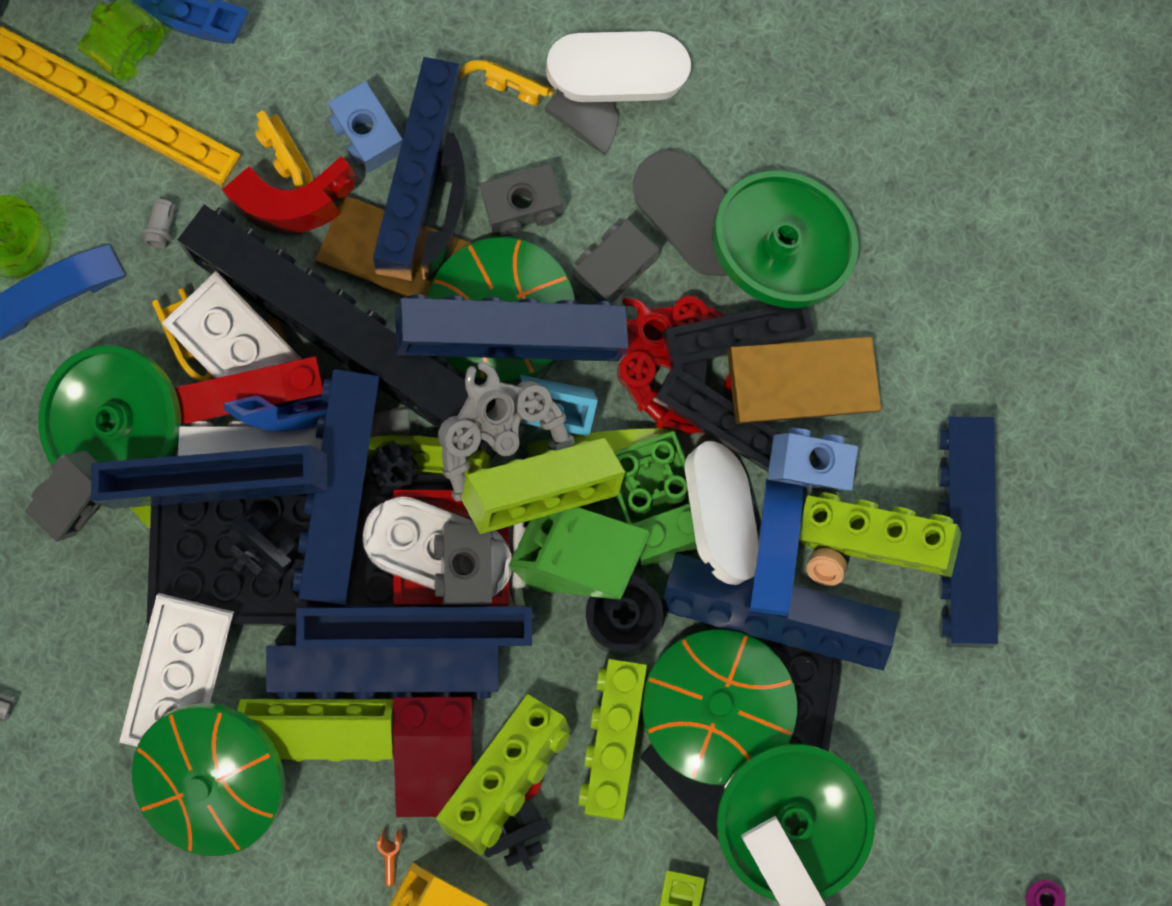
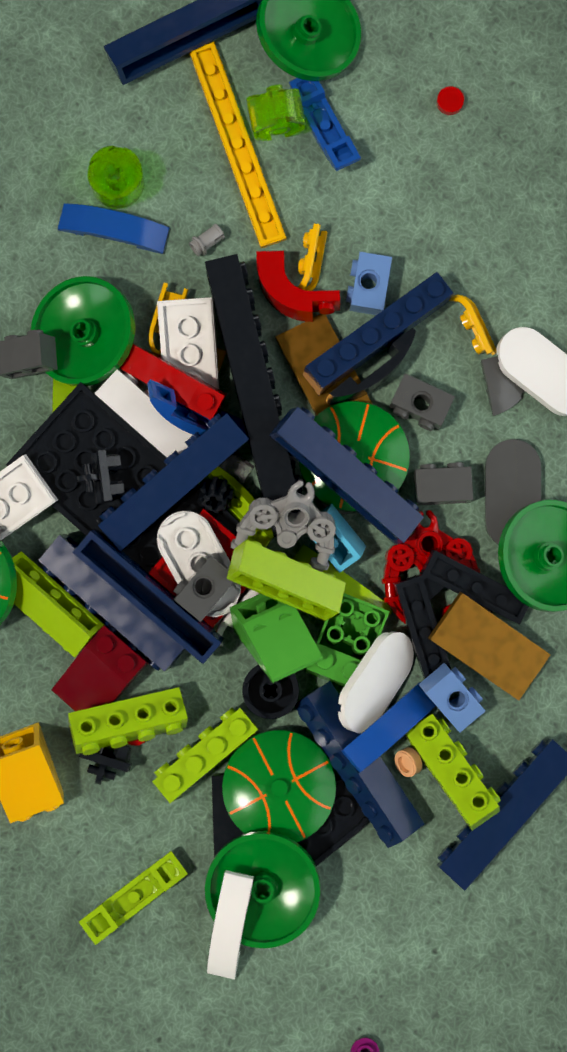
camera: 35 degrees right, 5 degrees up
(209, 477) = (106, 415): dark blue brick -> none
(389, 851) = (31, 705): orange hand -> none

